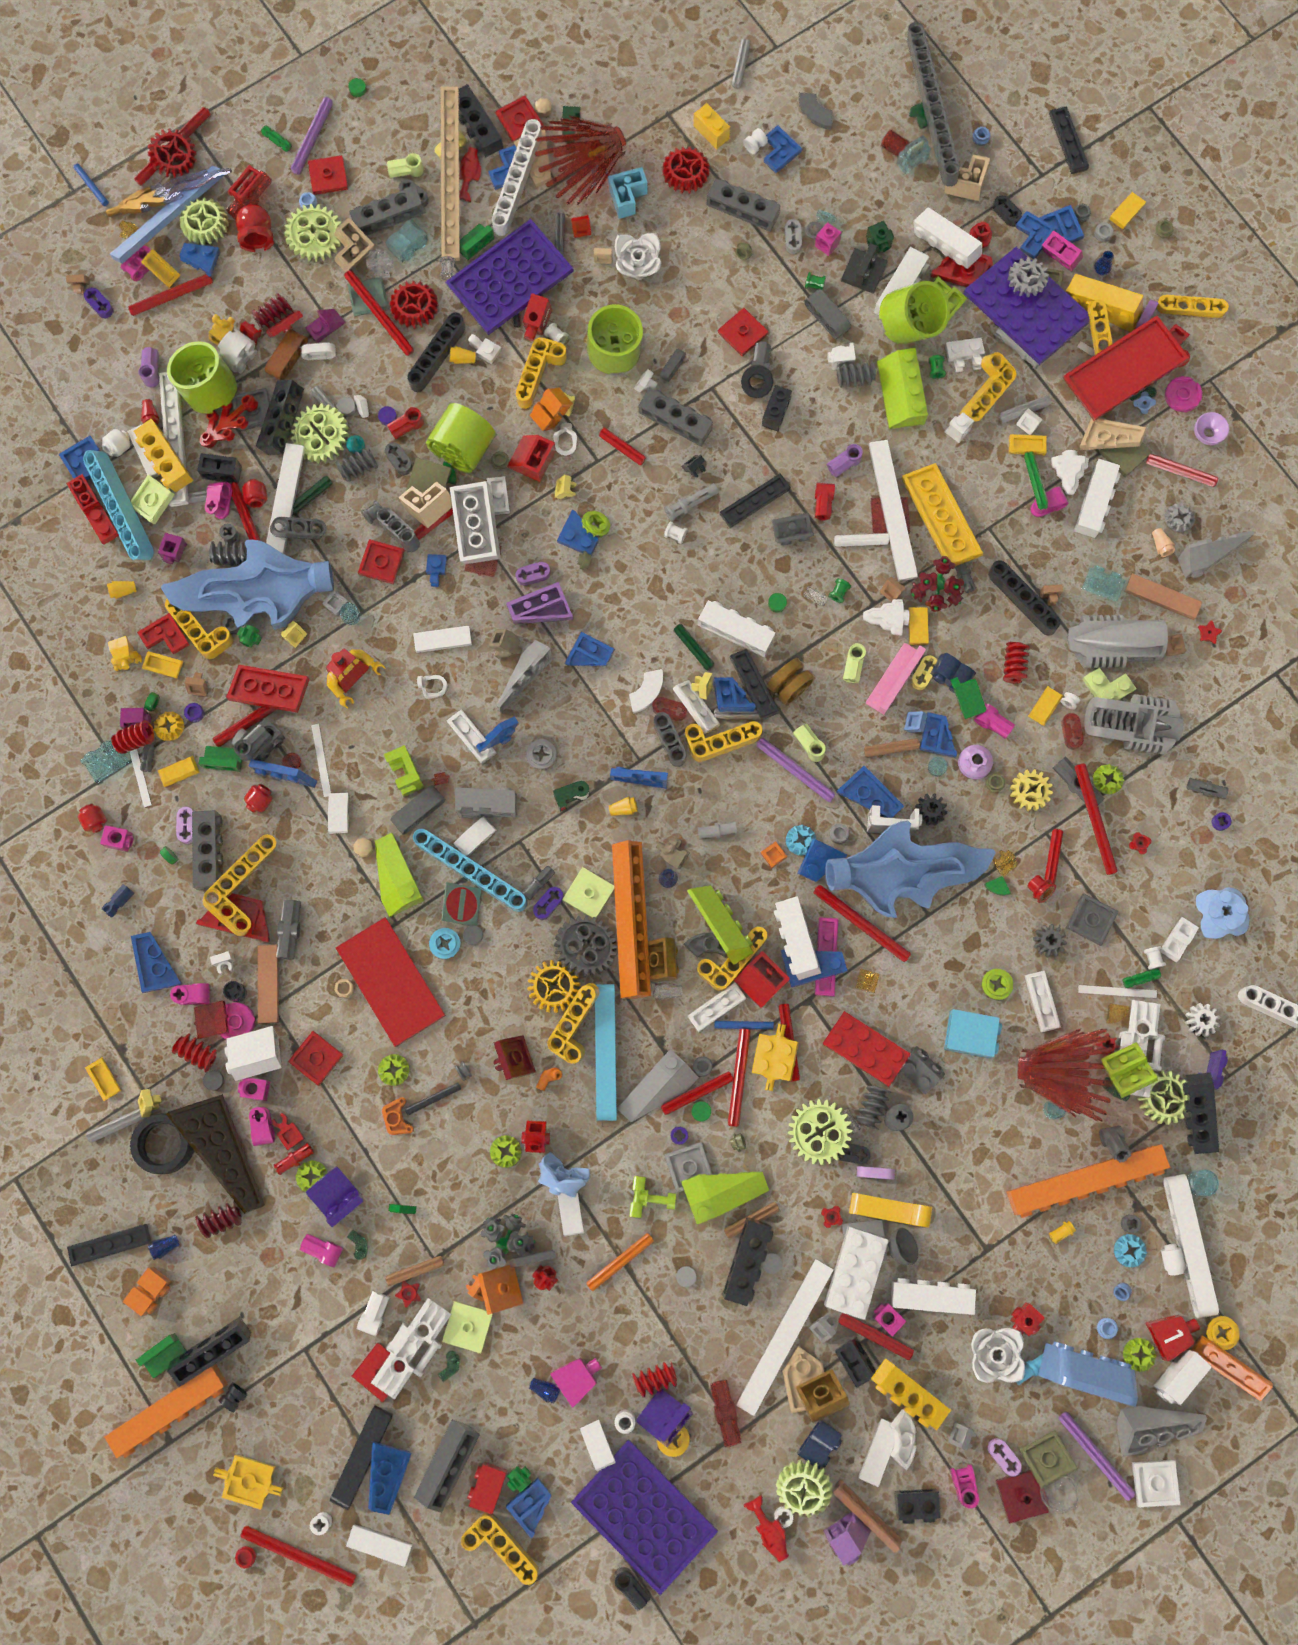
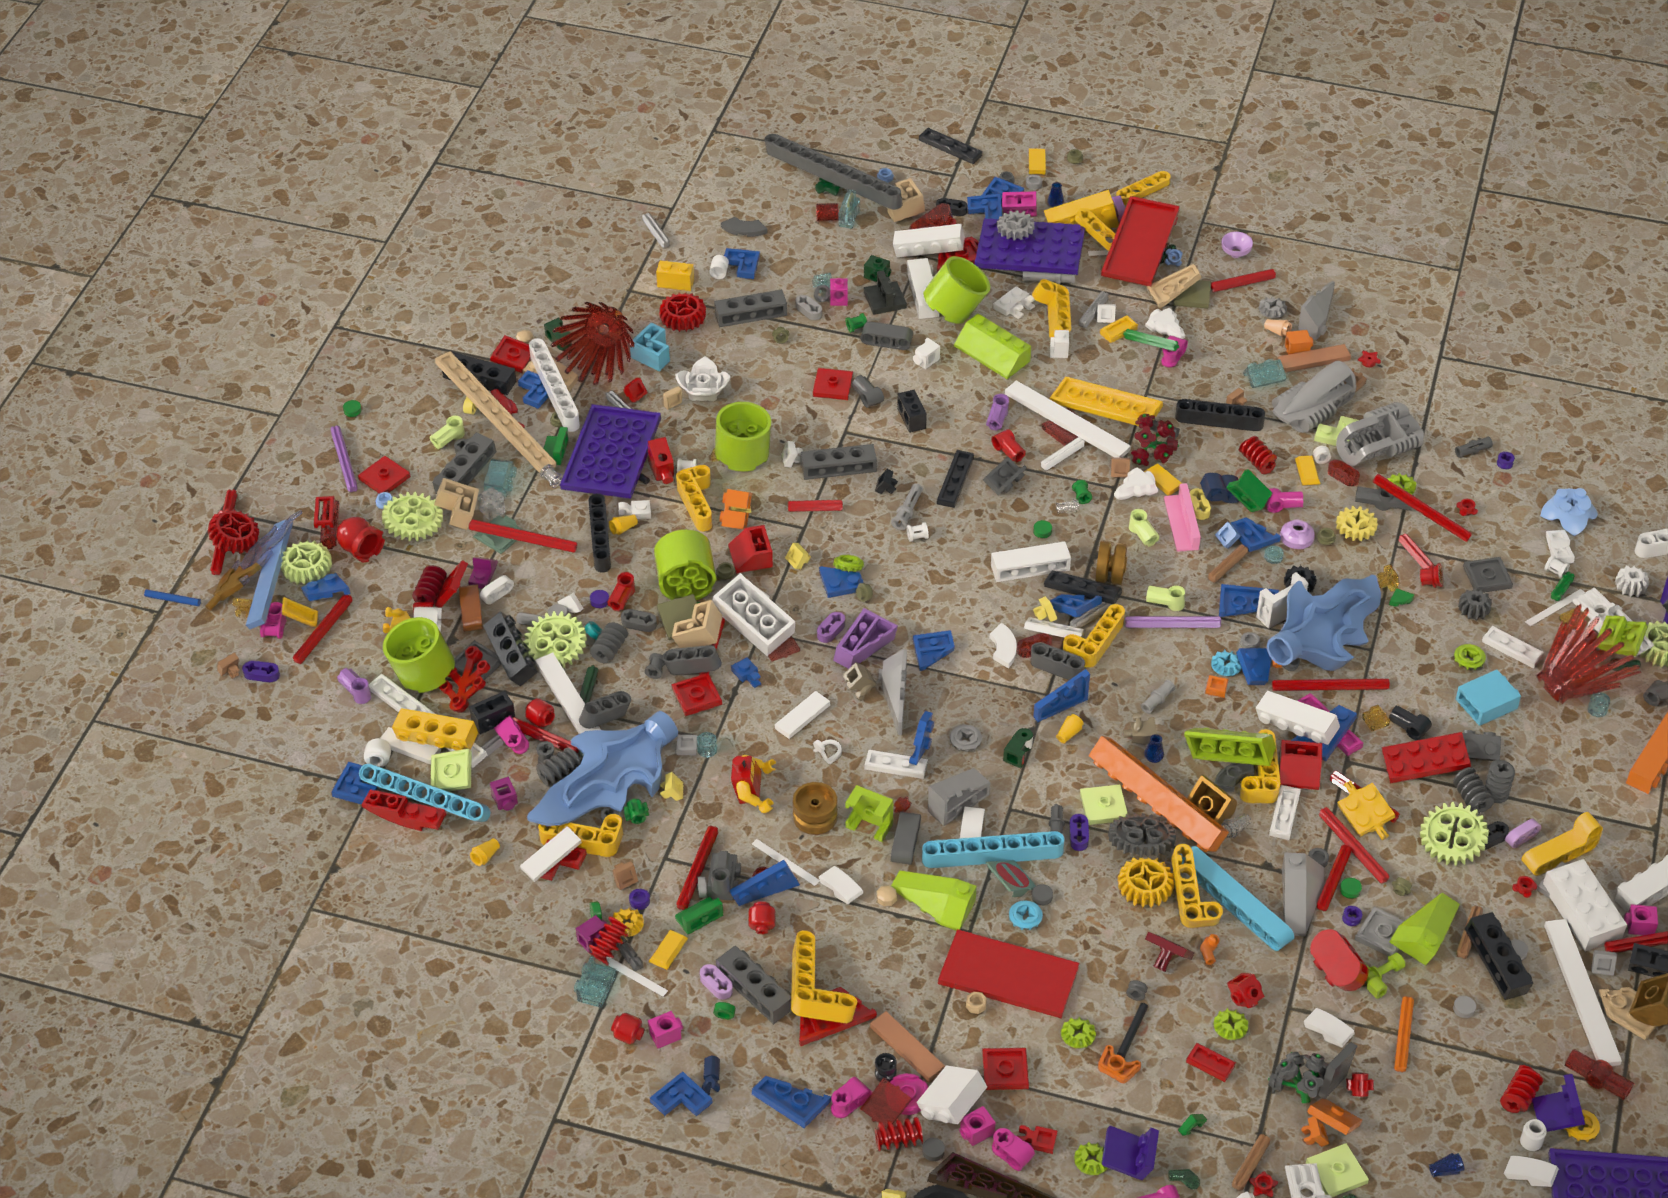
camera: 40 degrees left, 30 degrees down
(88, 897) = (681, 1090): none -> blue plate
(123, 653) = (534, 893): yellow piece -> none
(149, 412) = (385, 716): red cone -> none
(155, 630) = (551, 854): none -> white tile
(162, 664) = (577, 882): yellow tile -> none
(223, 959) = (851, 1051): white tile -> none
(268, 688) = (691, 834): red plate -> none
(276, 138) = (314, 477): green axle -> none
(288, 929) = (885, 992): dark grey piece -> none
(293, 1158) = (1063, 1155): red pin -> none
(361, 734) = (815, 808): none -> pearl gold wheel
(416, 297) = (548, 513): red gear -> none
(460, 1171) = (1210, 1062): none -> red plate
(560, 1179) = (1294, 1001): light blue brick -> none
(568, 428) = (756, 520): white piece -> none
(576, 1379) = (1463, 1137): dark pink torso -> none
(625, 1169) = (1338, 960): none -> brick
(673, 364) = (801, 432): dark grey beam -> none
(694, 647) = (1009, 595): dark green axle -> none
(743, 1025) = (1315, 811): blue bar -> none
(757, 392) = (870, 408): black tyre -> none
(856, 374) = (949, 356): dark grey piece -> none
(889, 1012) = (1414, 725): none -> black piece
(903, 1247) = (1598, 866): dark grey piece -> none
(937, 373) = (1003, 320): green bush -> none
(968, 219) = (938, 216): none -> clear red beam
(1096, 499) = (1204, 328): white brick -> none
(1162, 572) = (1298, 341): none -> orange brick
(1183, 394) = (1193, 239): dark pink tile -> none

